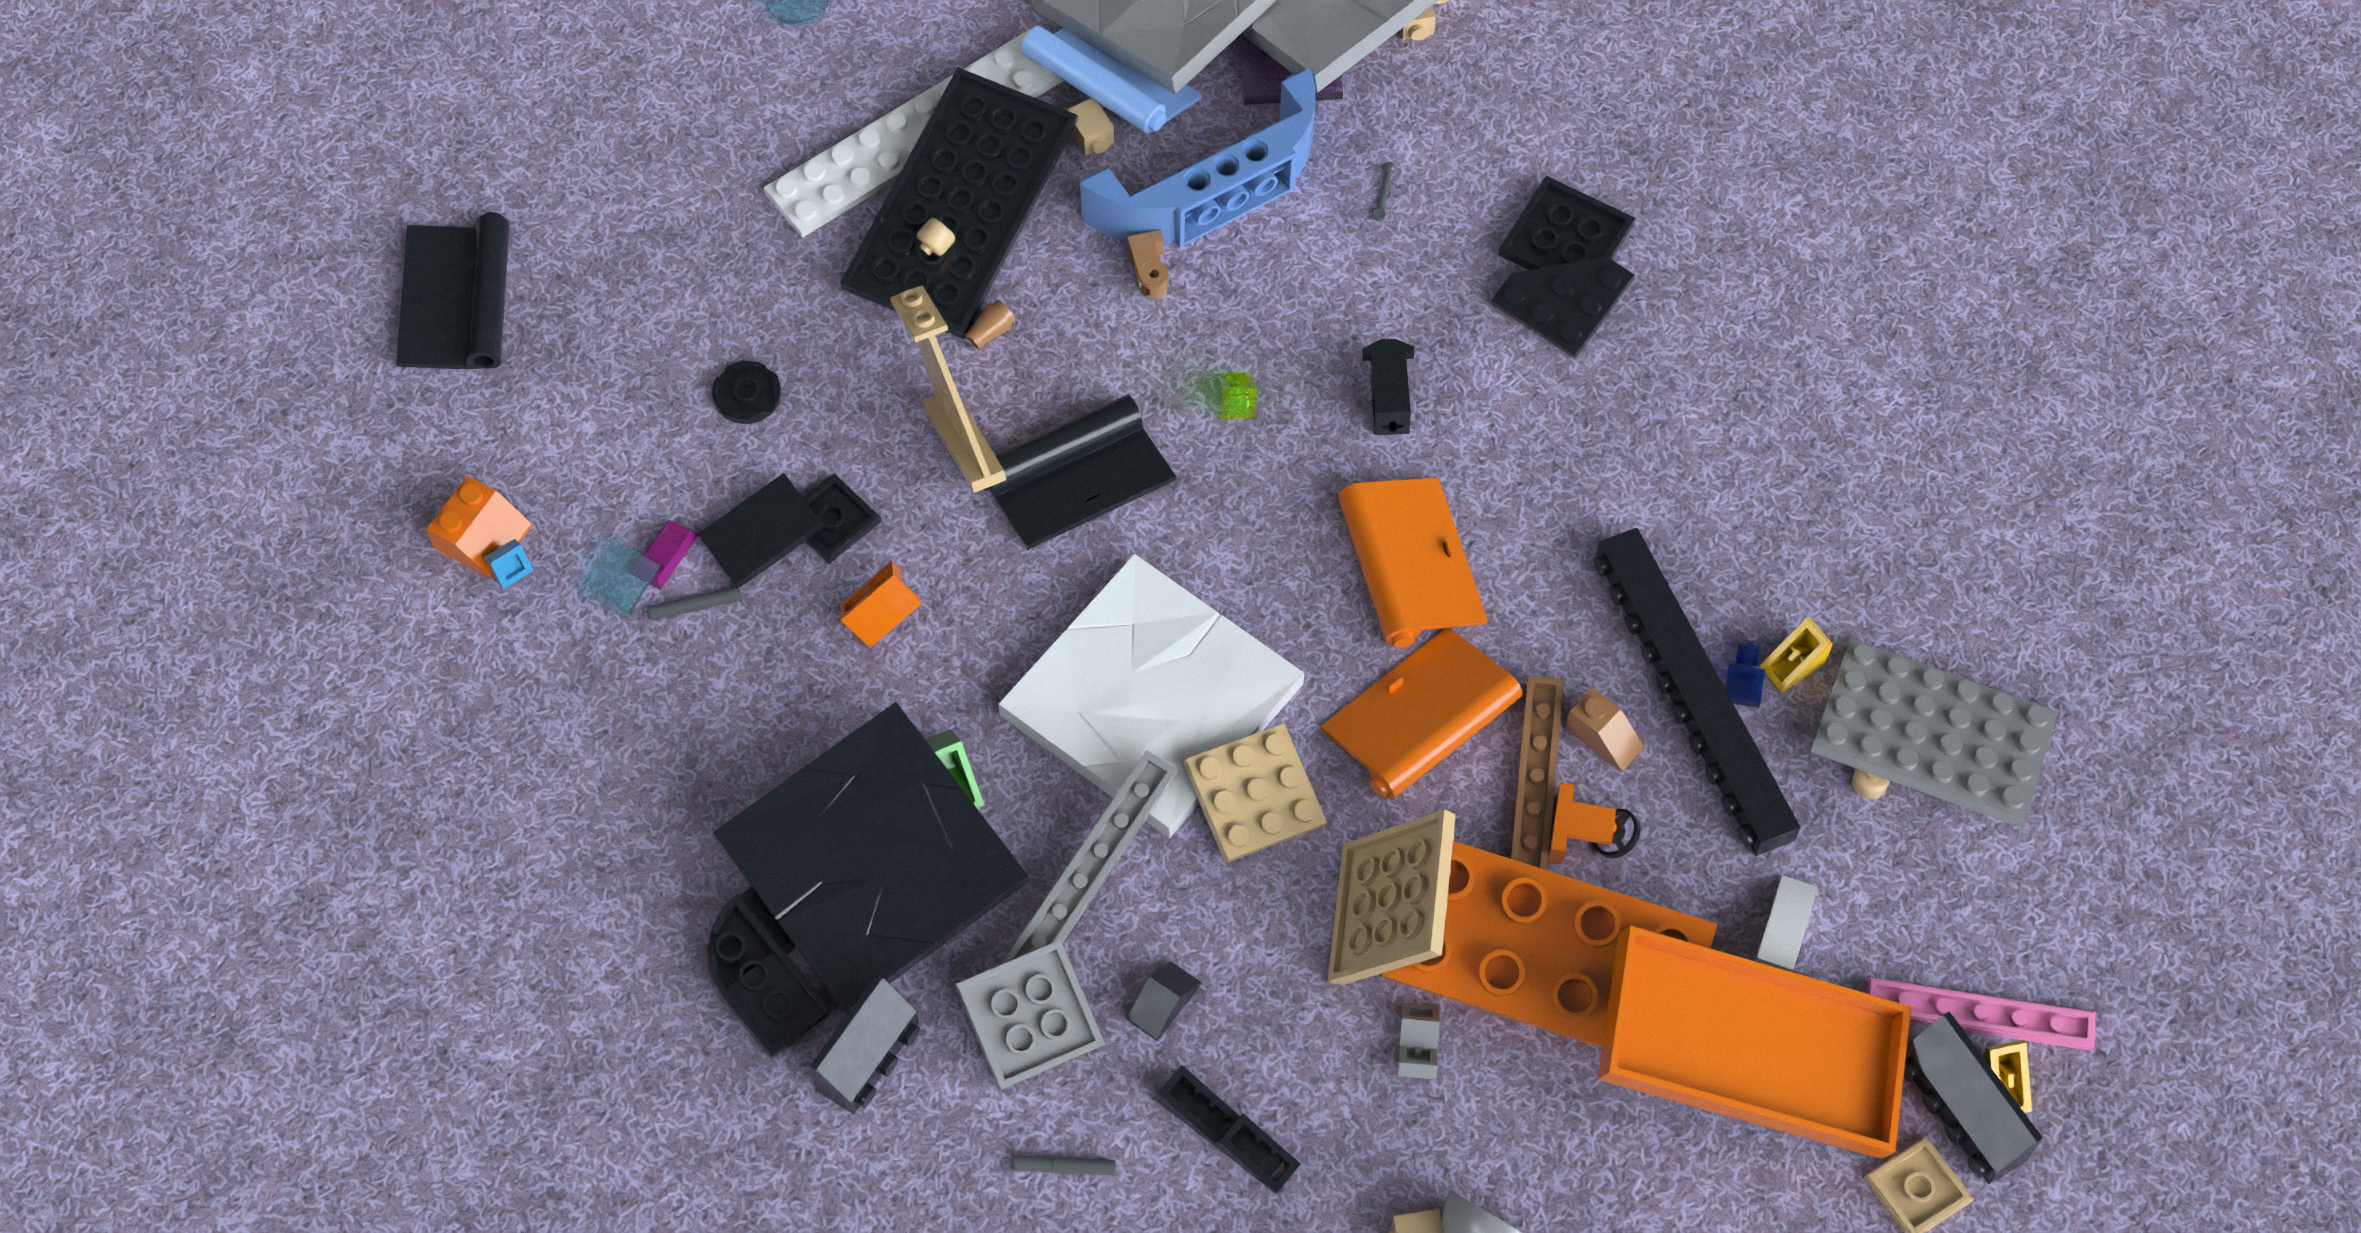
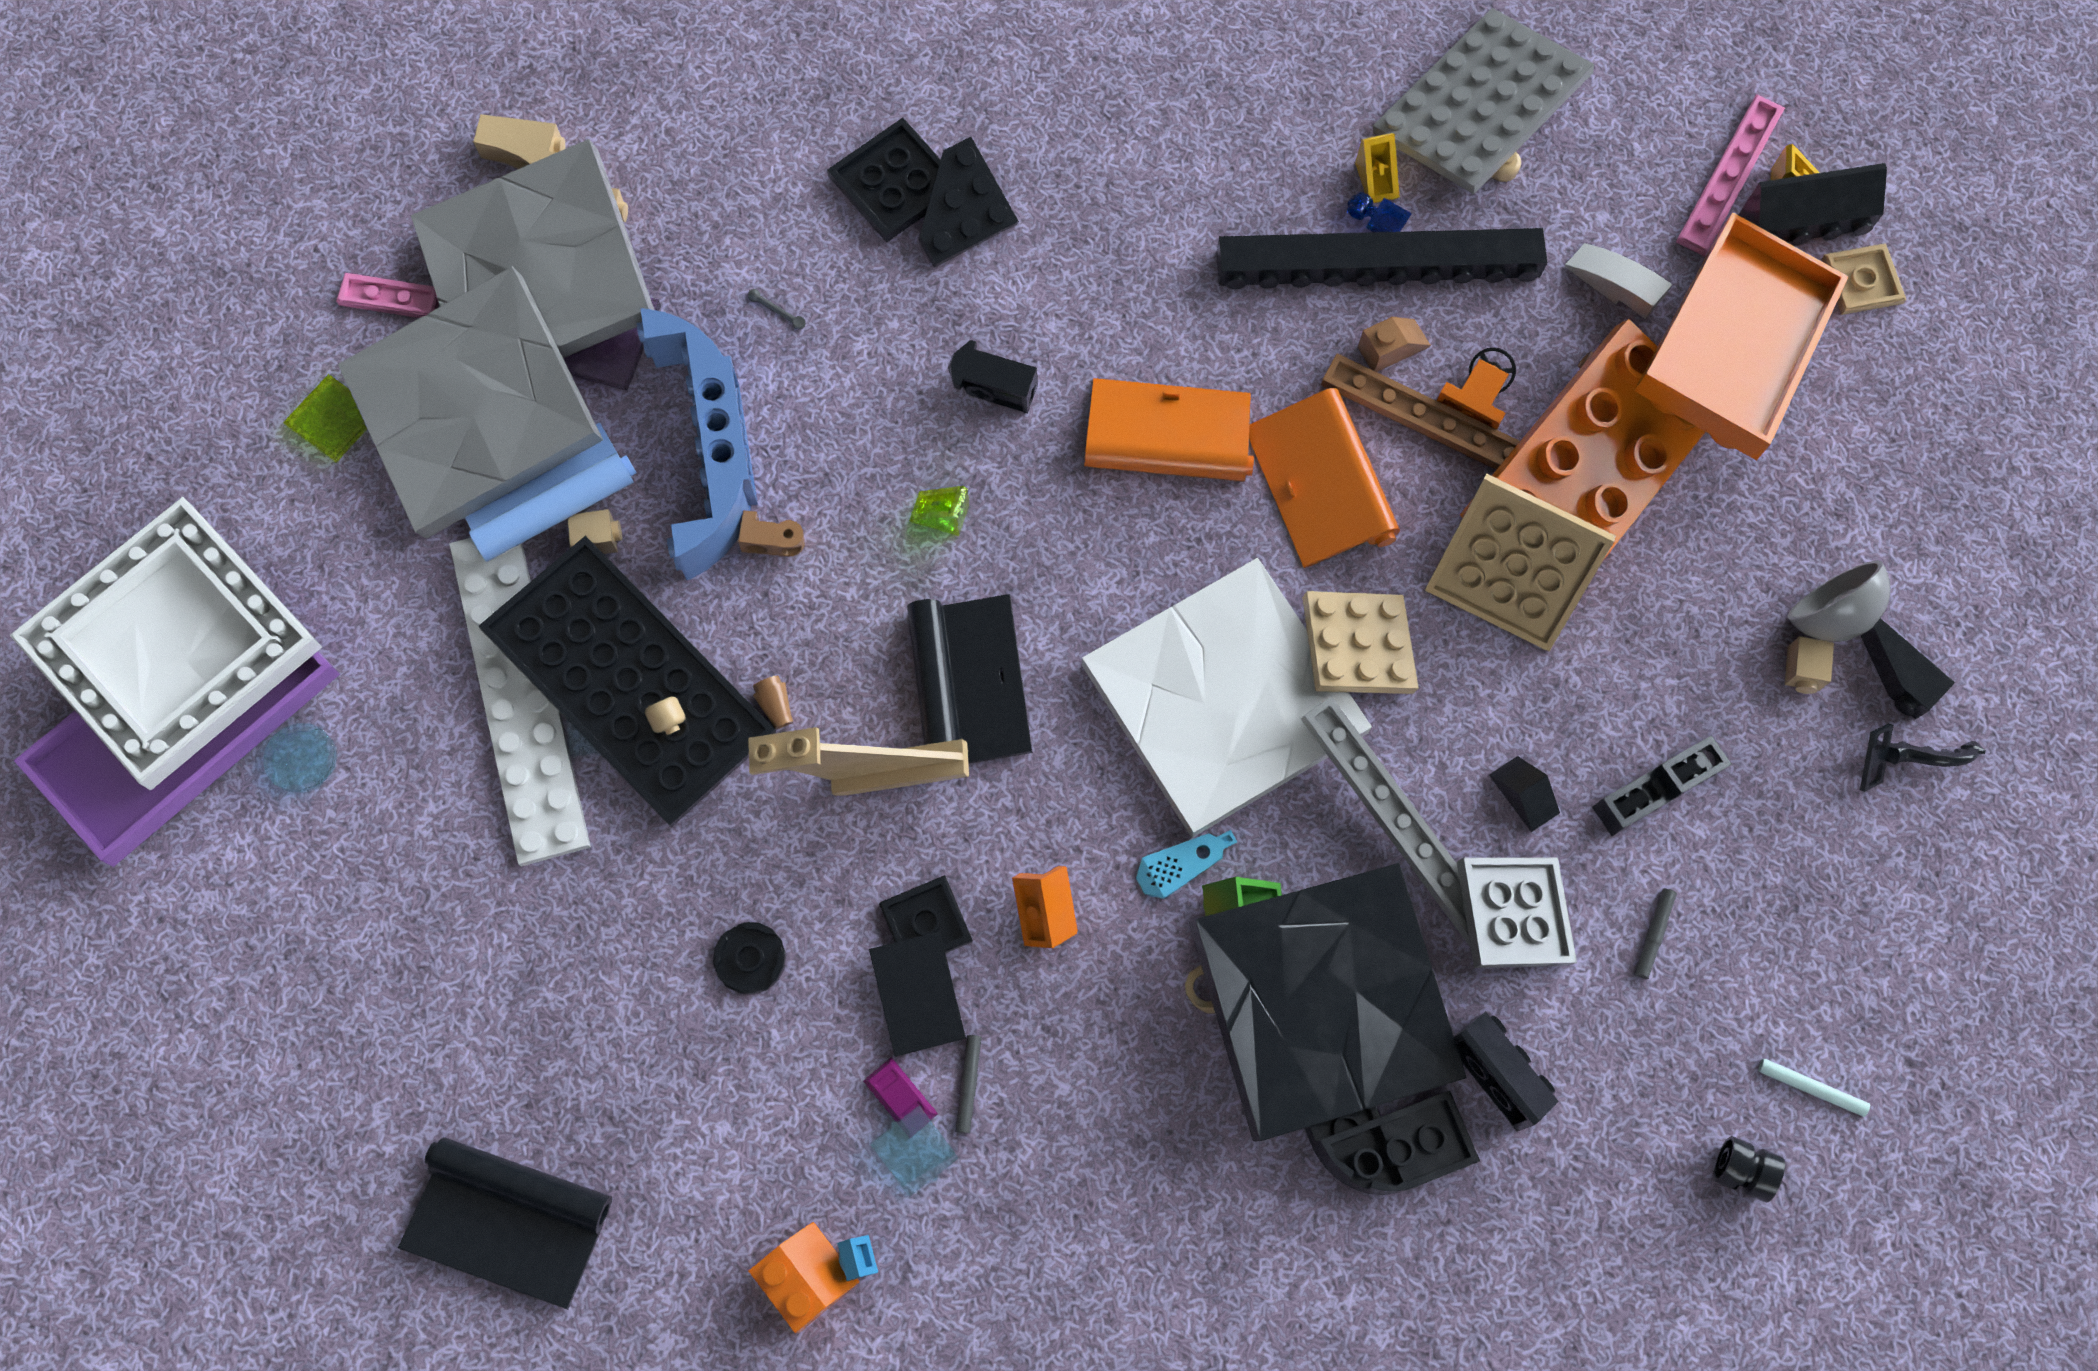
camera: 70 degrees left, 10 degrees up
(973, 715) = (1186, 860): none -> medium azure piece
(1418, 1041) = (1624, 596): light grey slope -> none

